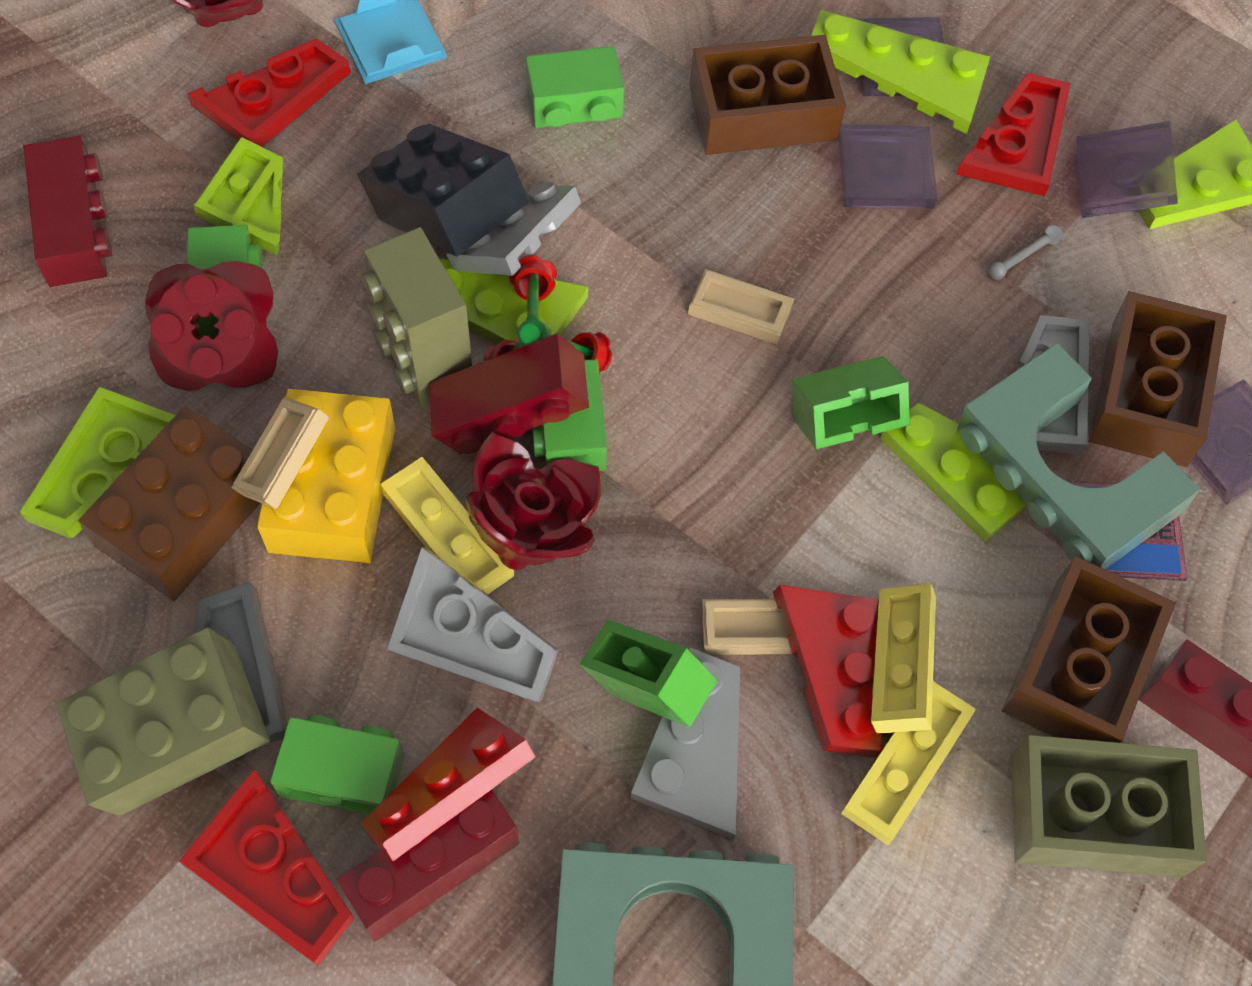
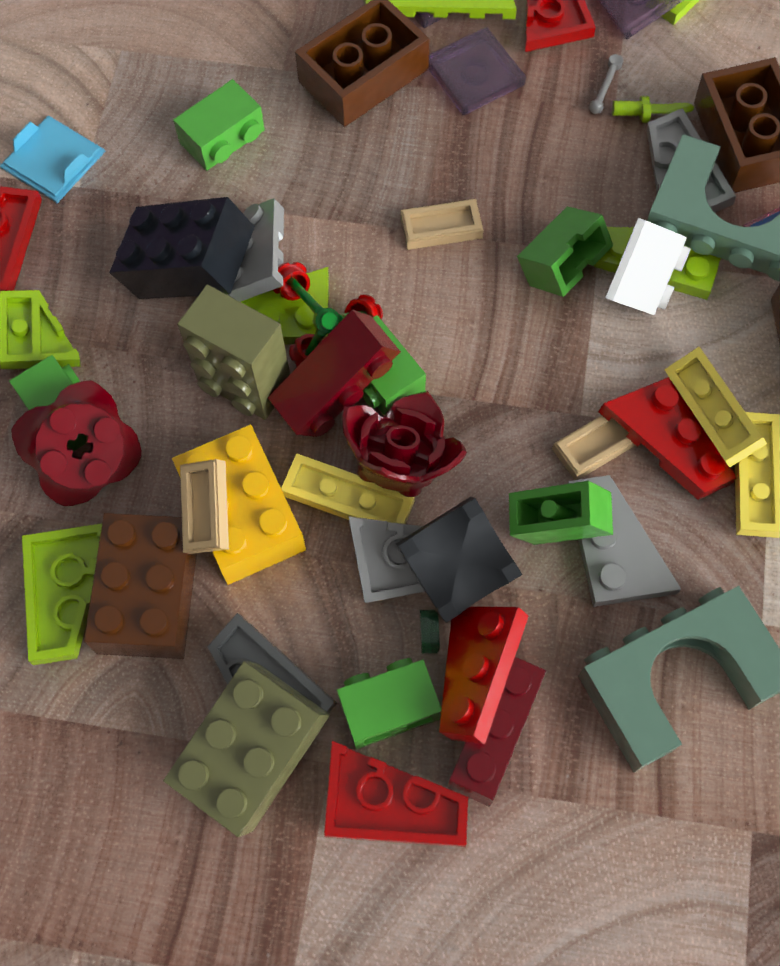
camera: 25 degrees left, 5 degrees up
(431, 717) = (429, 631): none -> clear green tile
(504, 655) = (458, 558): none -> black brick
(921, 464) = (647, 267): none -> white slope
(1050, 299) = (644, 109): none -> lime piece

